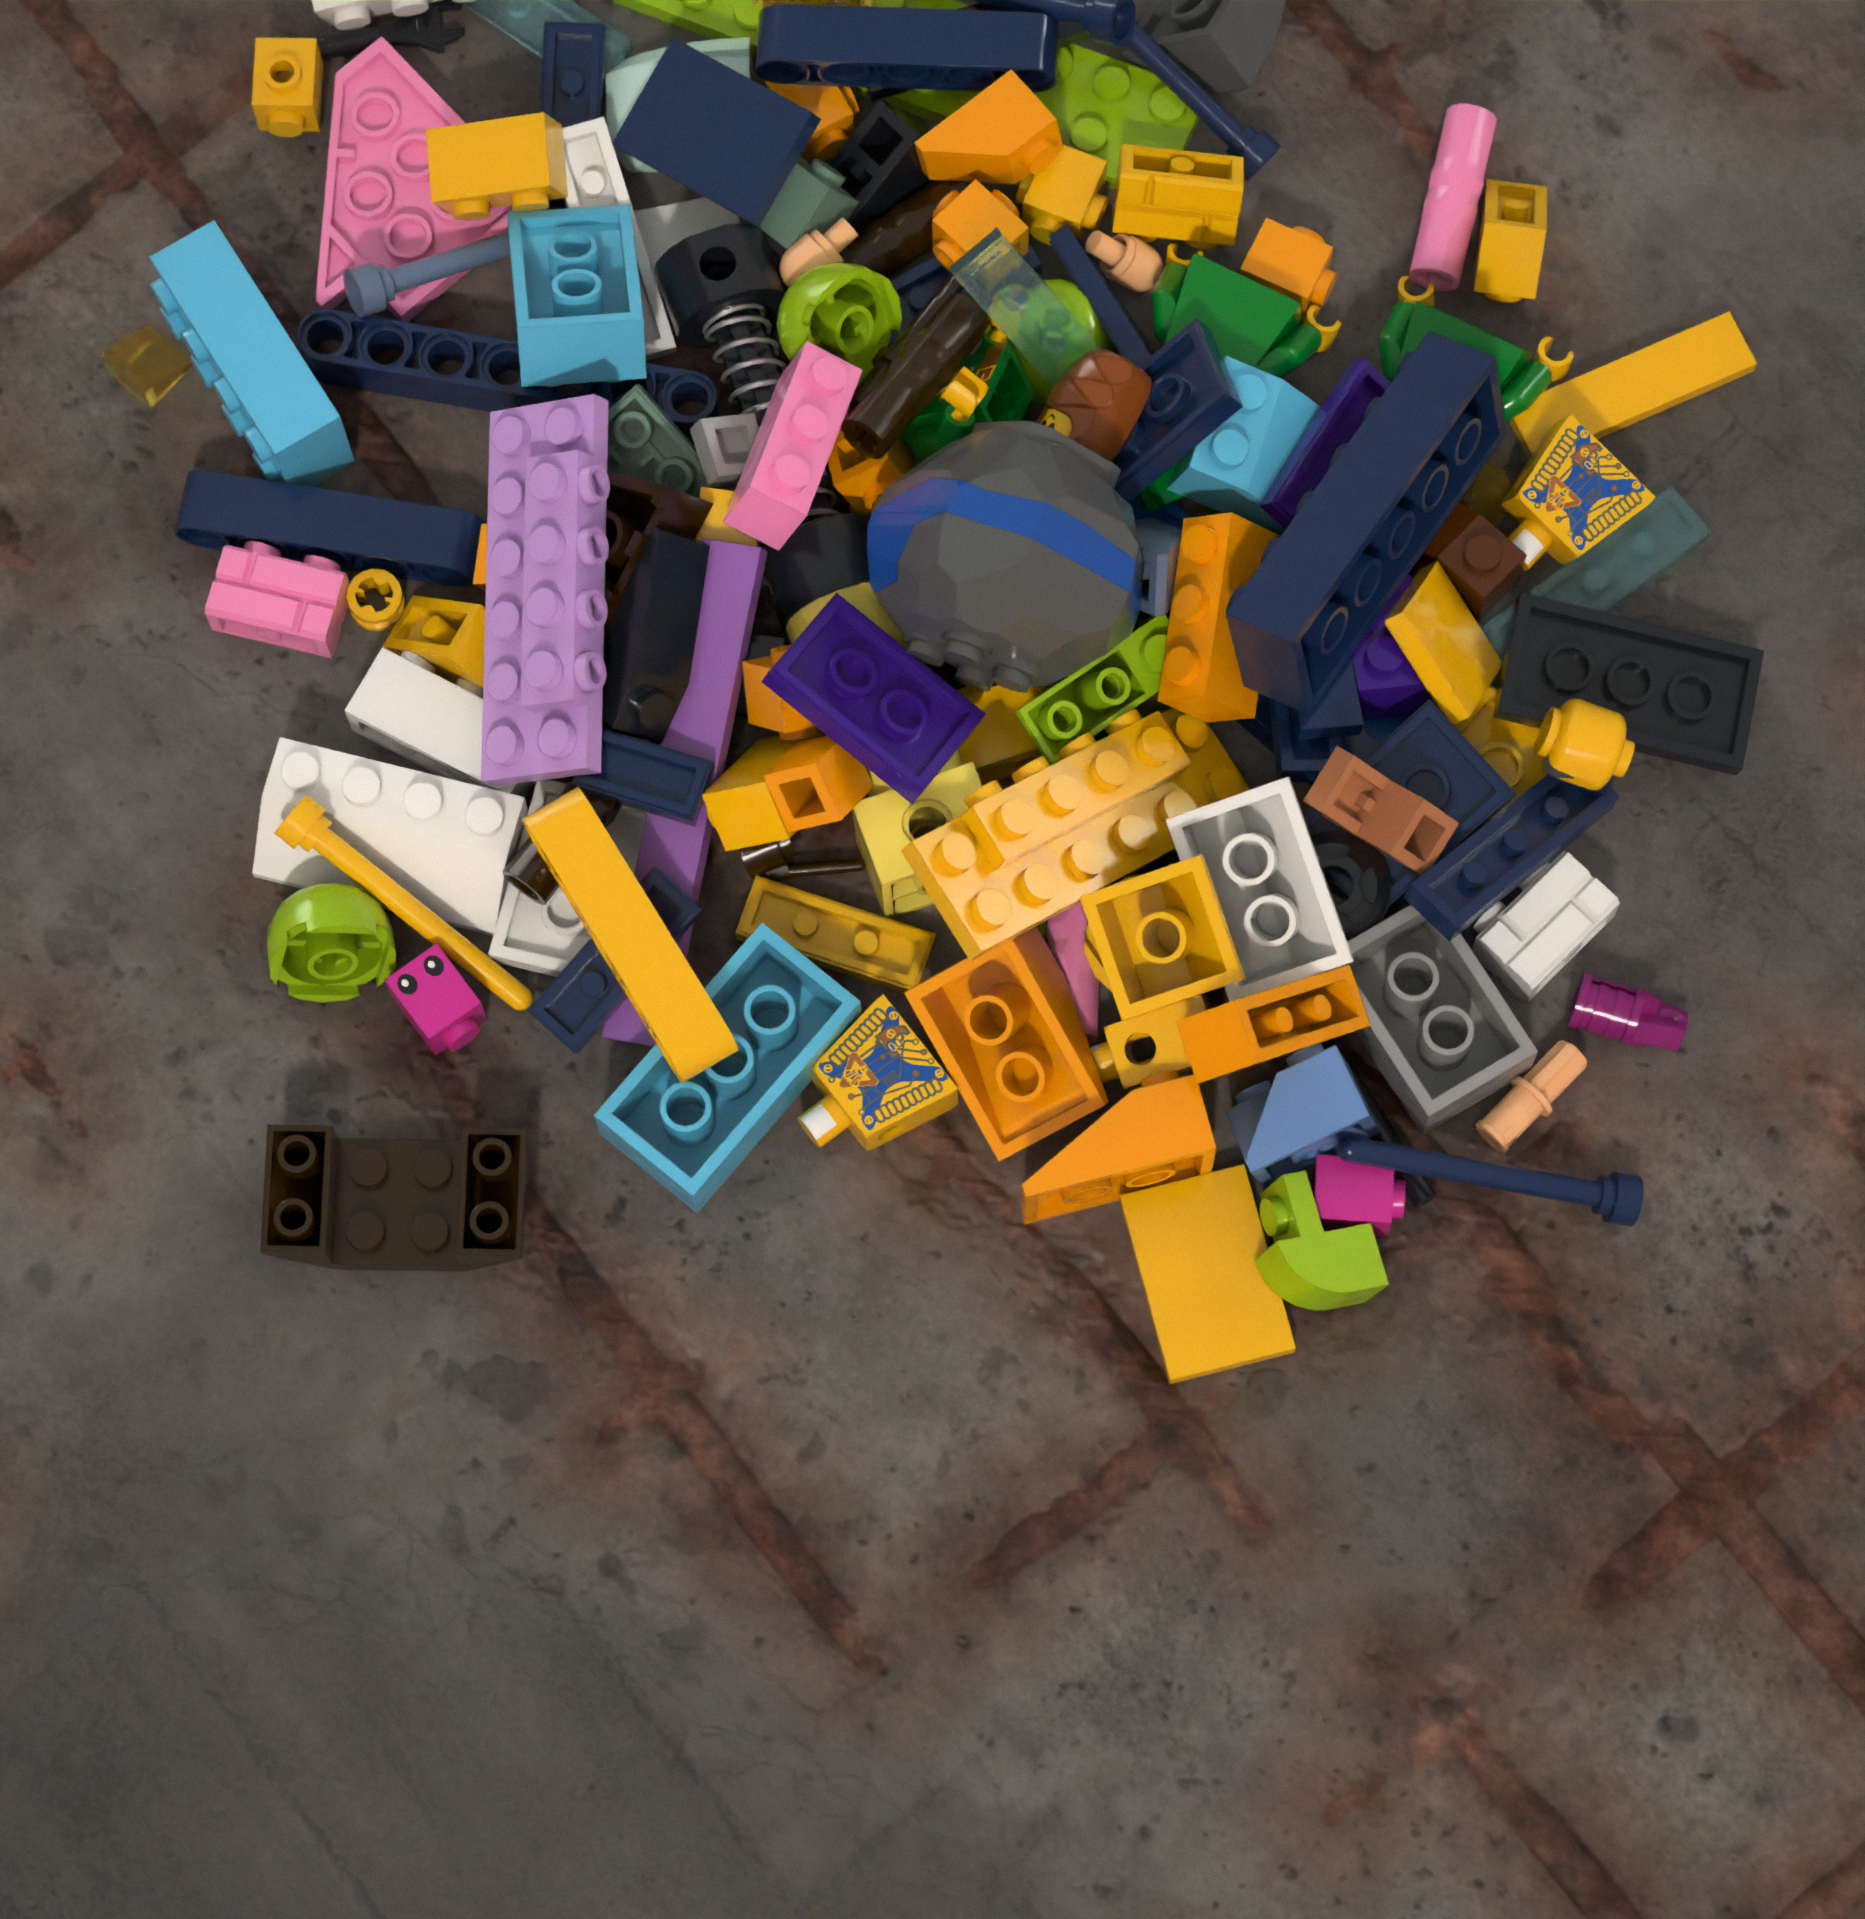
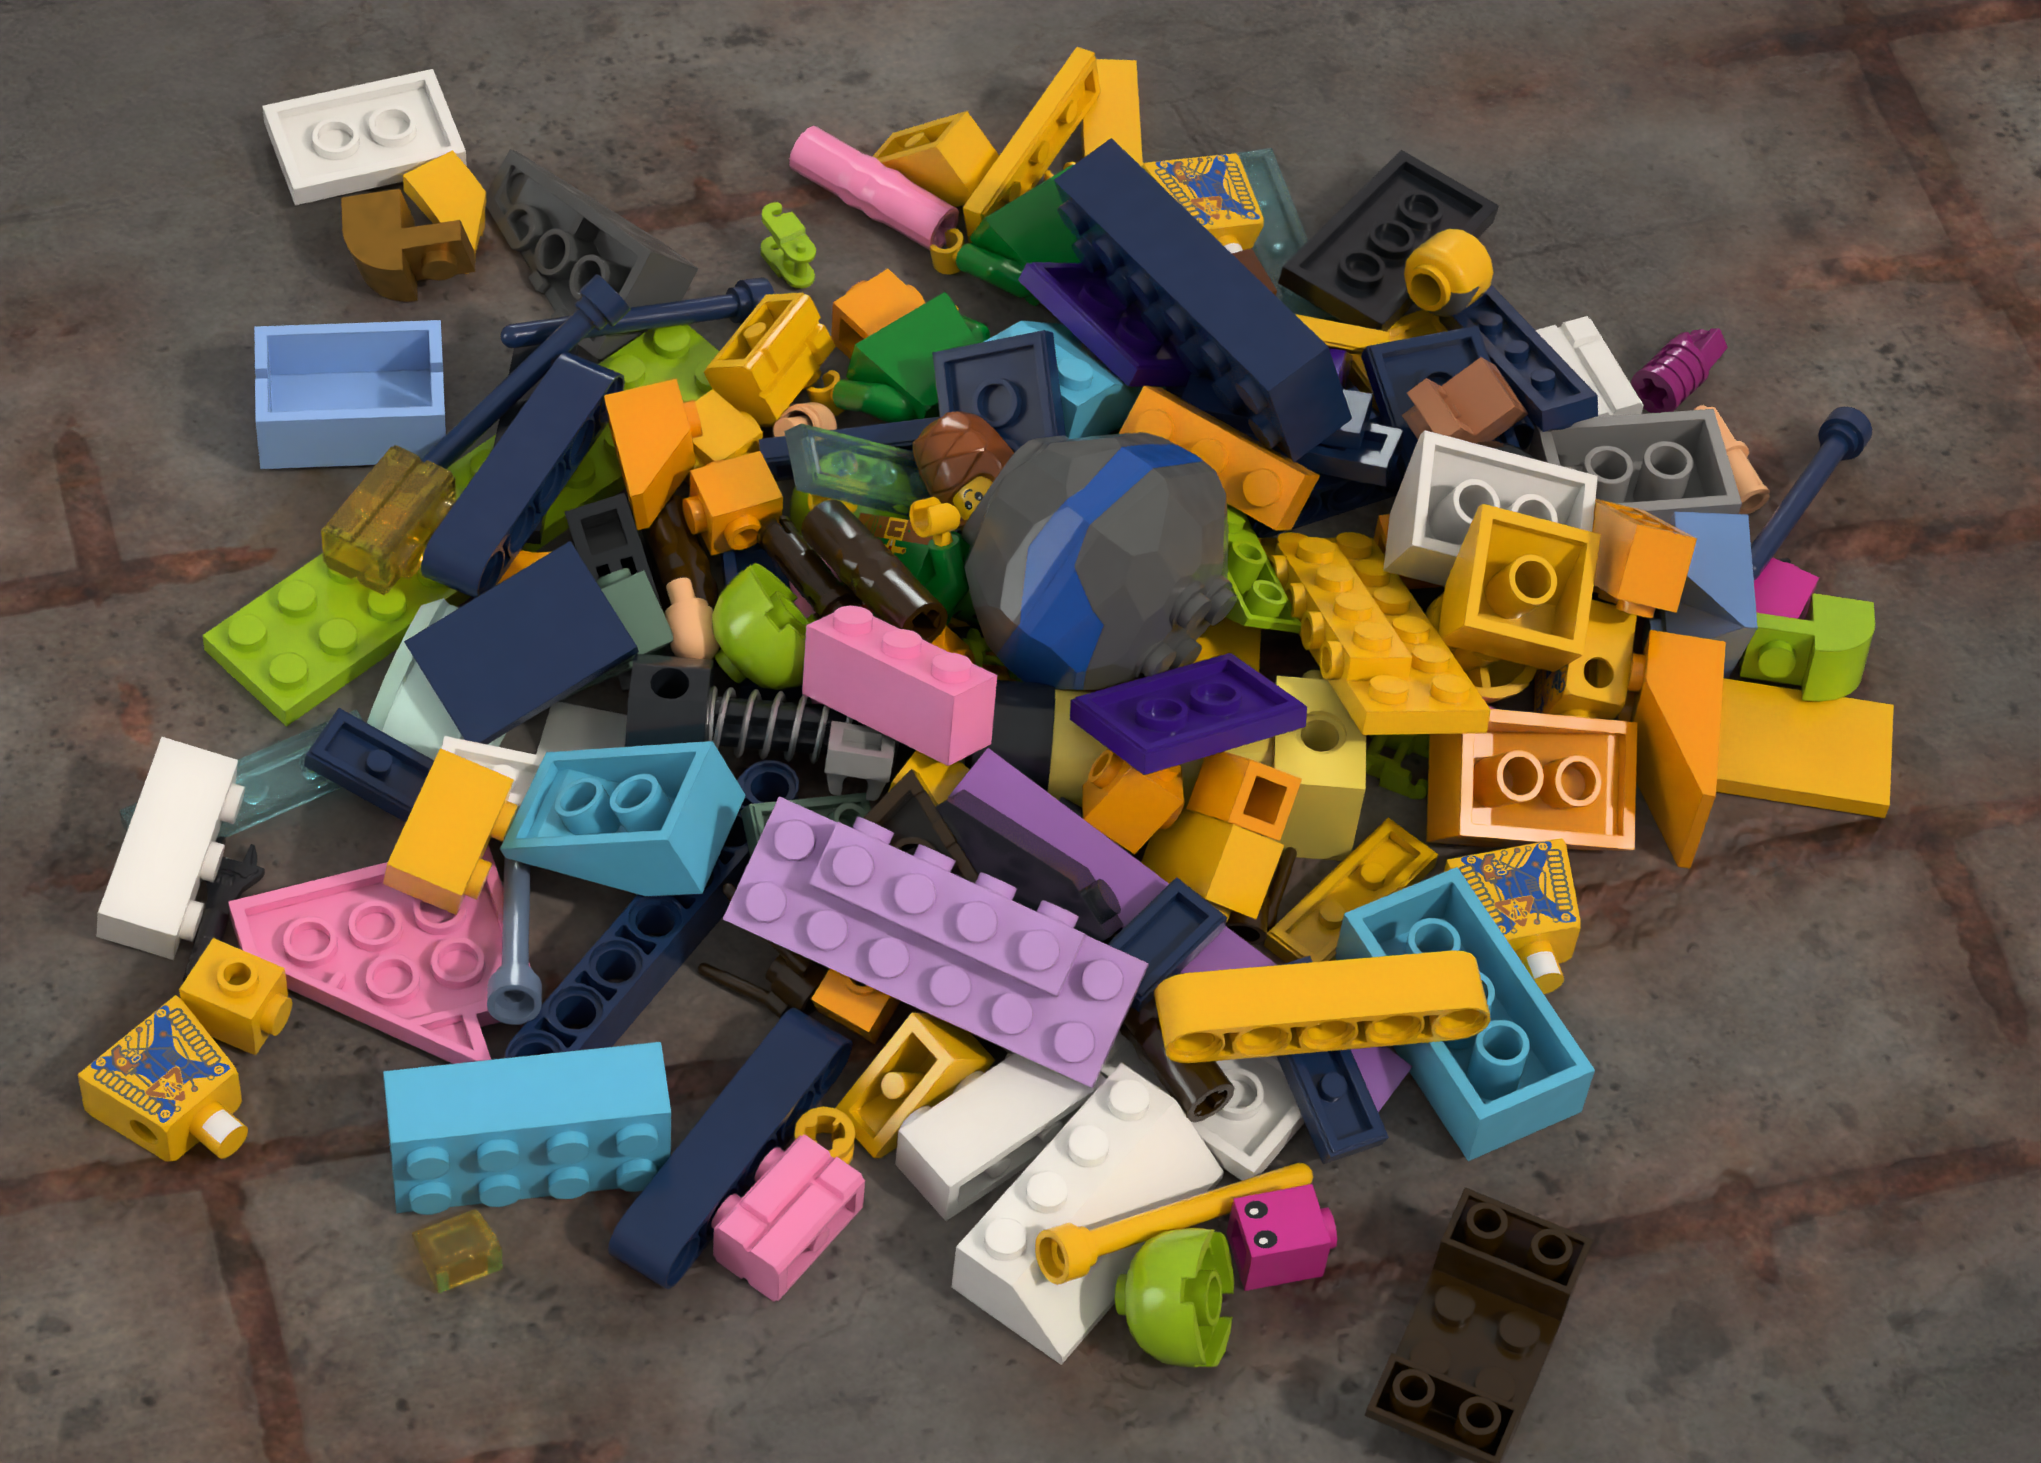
camera: 75 degrees left, 20 degrees down
(188, 80) = (167, 1087): none -> yellow torso
(1333, 155) = (795, 247): none -> lime piece
(1574, 313) = (1037, 138): none -> yellow tile

